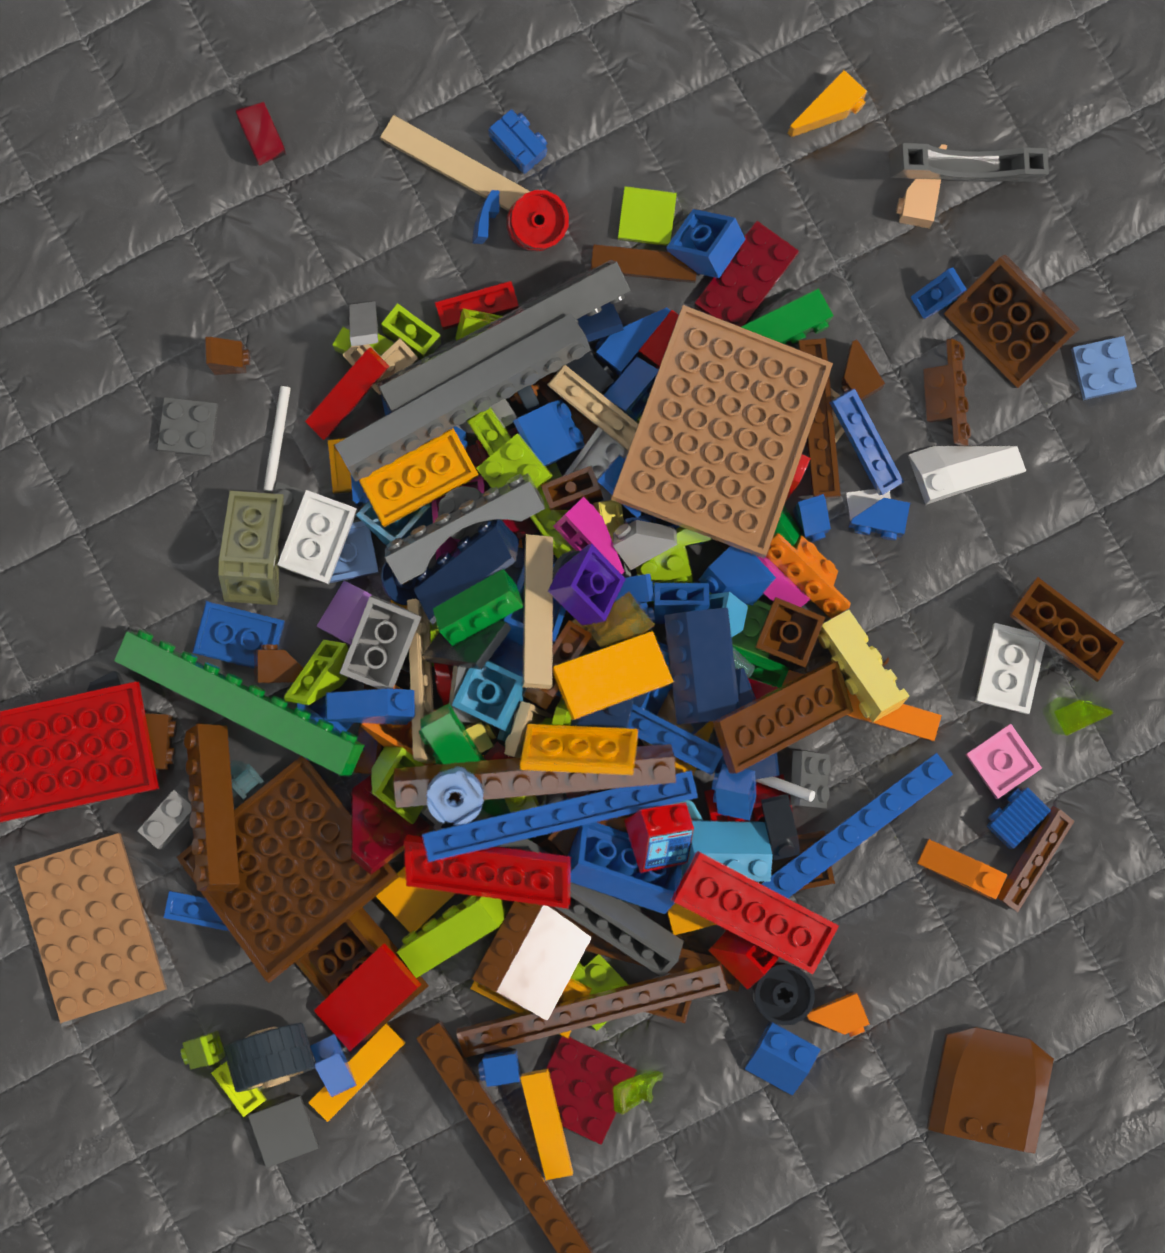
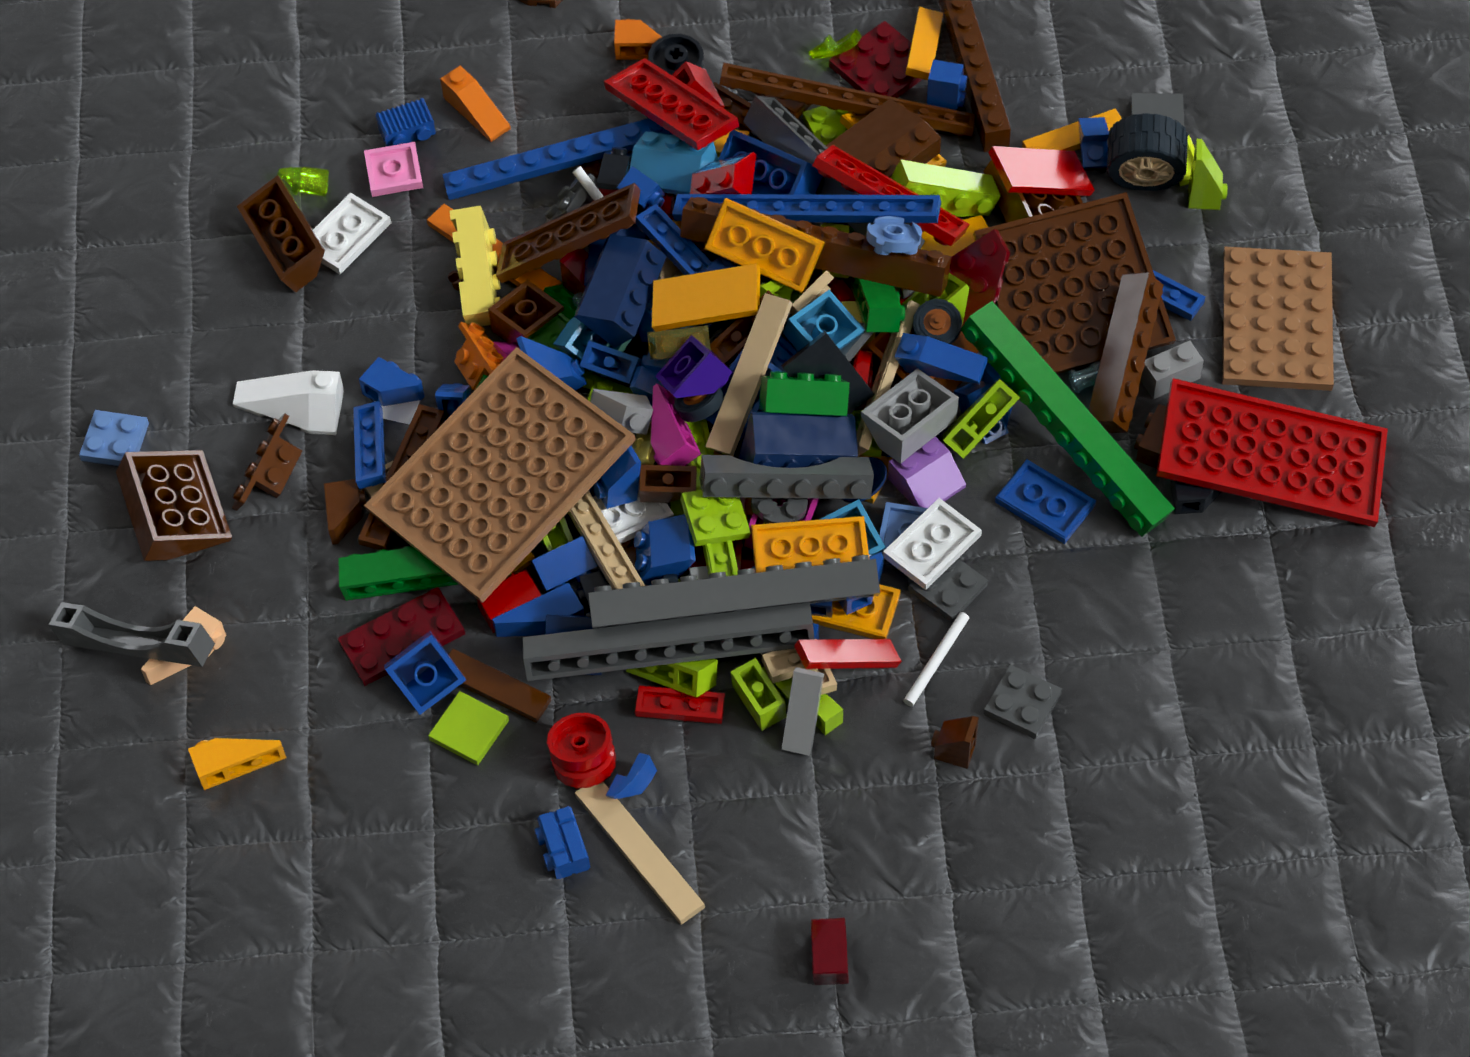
camera: 150 degrees left, 25 degrees down
(251, 548) = (998, 558): olive bracket -> none
(275, 665) = (1017, 450): reddish brown slope -> none
(388, 743) = (938, 320): none -> black wheel
(782, 1058) = (700, 24): blue slope -> none
(938, 293) = (227, 549): blue slope -> none
(1035, 859) = (417, 88): reddish brown plate -> none

